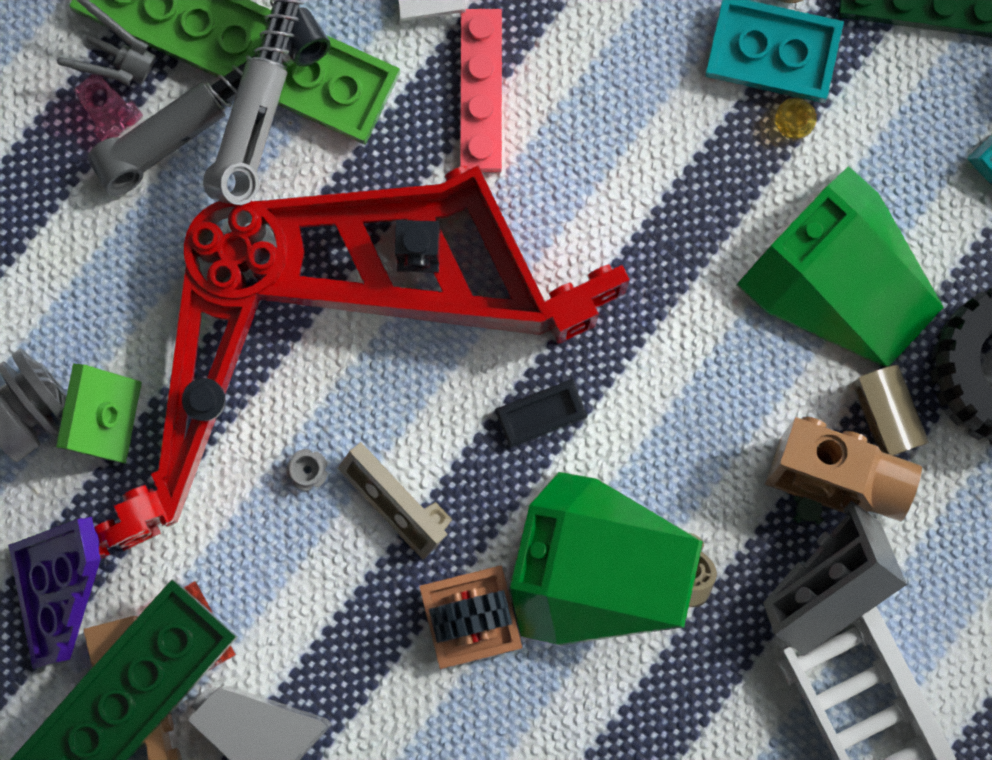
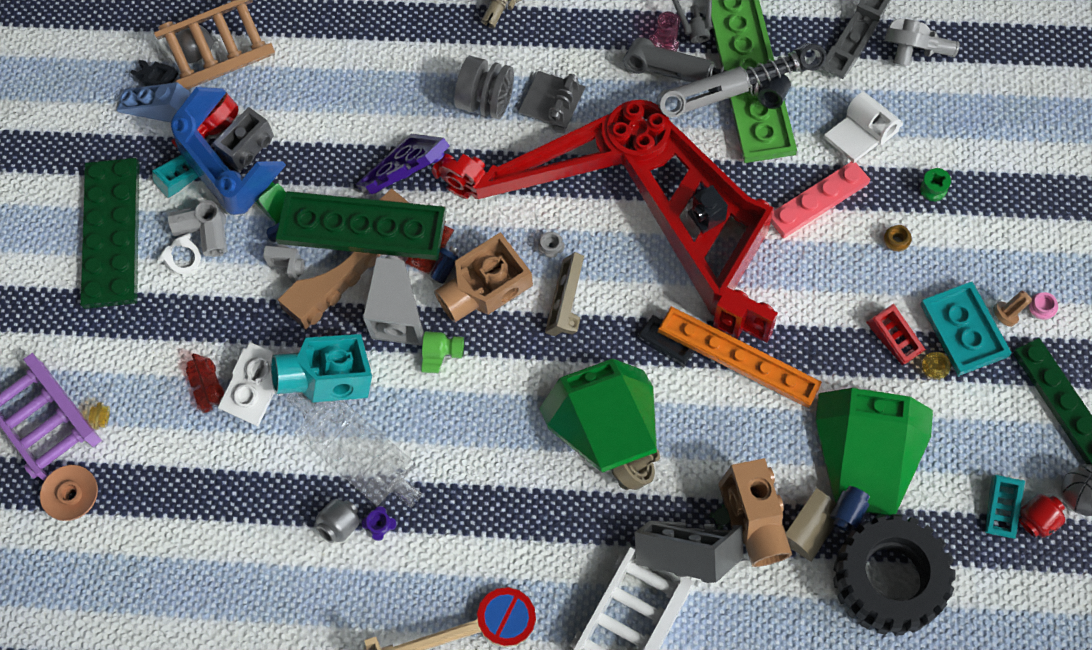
camera: 60 degrees right, 15 degrees down
(93, 321) = (552, 99): none -> flat silver hinge
(99, 413) = (507, 125): bright green plate -> none
(203, 399) = (549, 161): black plate -> none
(238, 621) = (444, 264): none -> dark blue piece
(303, 592) = (484, 280): none -> medium nougat brick
(351, 712) = (436, 347): none -> bright green piece
(470, 617) = (529, 373): nougat plate -> none
(605, 25) = (897, 231): none -> pearl gold plate
(624, 344) = (739, 357): none -> orange tile
(692, 148) = (882, 332): none -> red slope
(910, 357) = (850, 509): none -> dark blue brick

